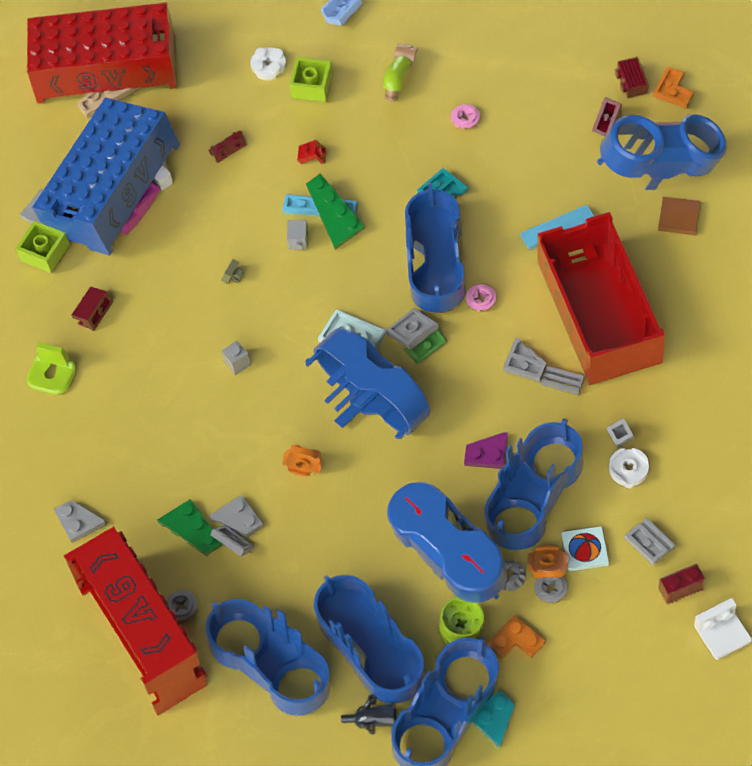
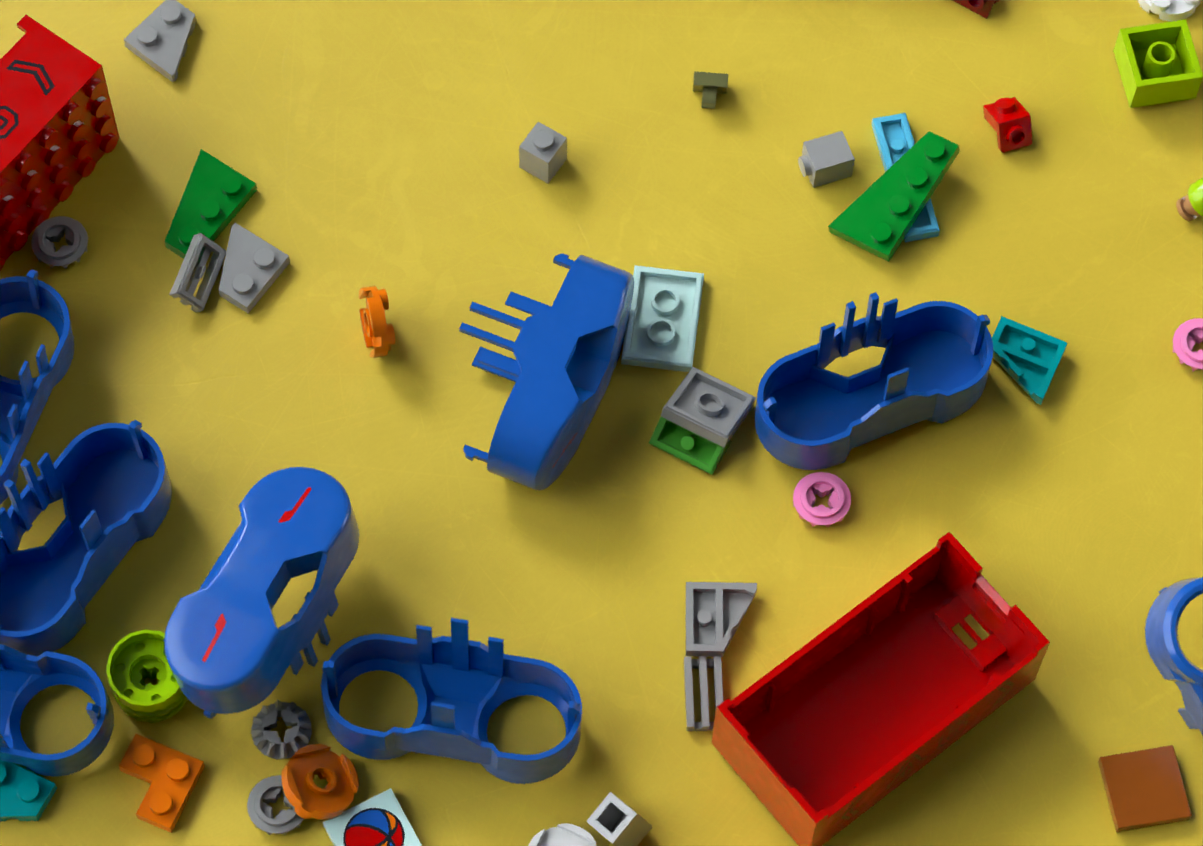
camera: 60 degrees right, 5 degrees up
(487, 452) = (512, 613): magenta wing -> none
(568, 220) = (1028, 582): medium azure tile -> none

